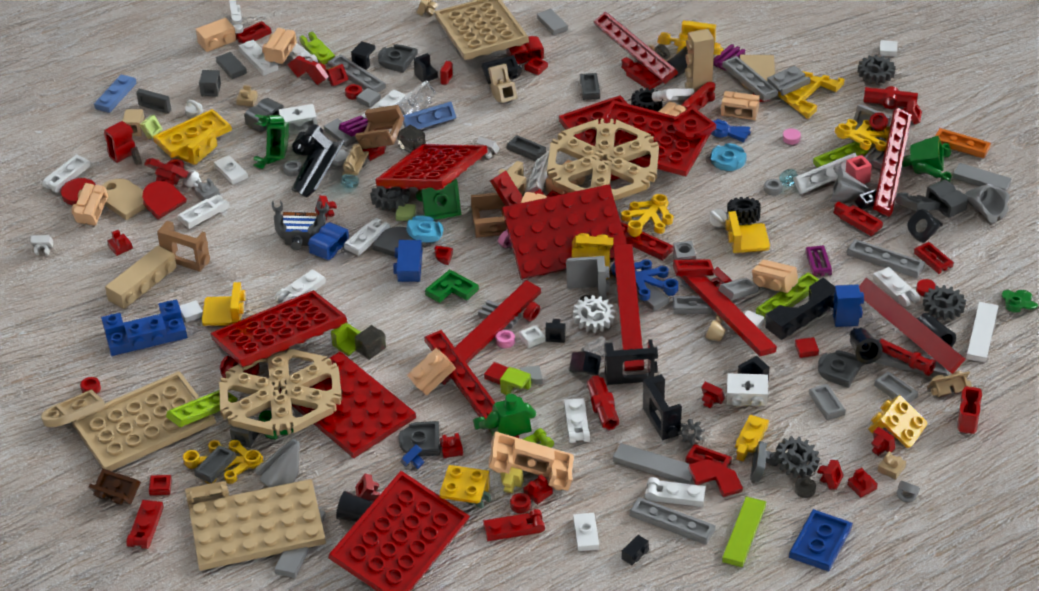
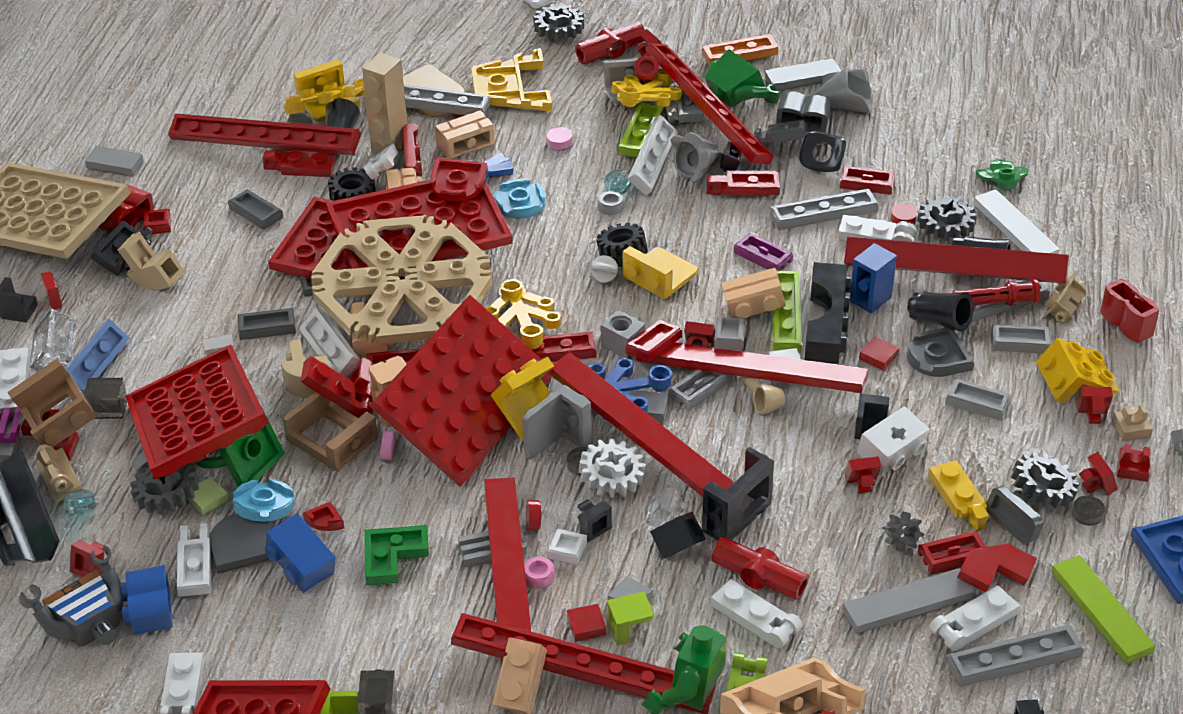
camera: 45 degrees left, 0 degrees up
(655, 400) = (816, 525): black window -> none
(788, 80) = (487, 78): light grey plate -> none
(859, 168) = (686, 123): coral brick -> none

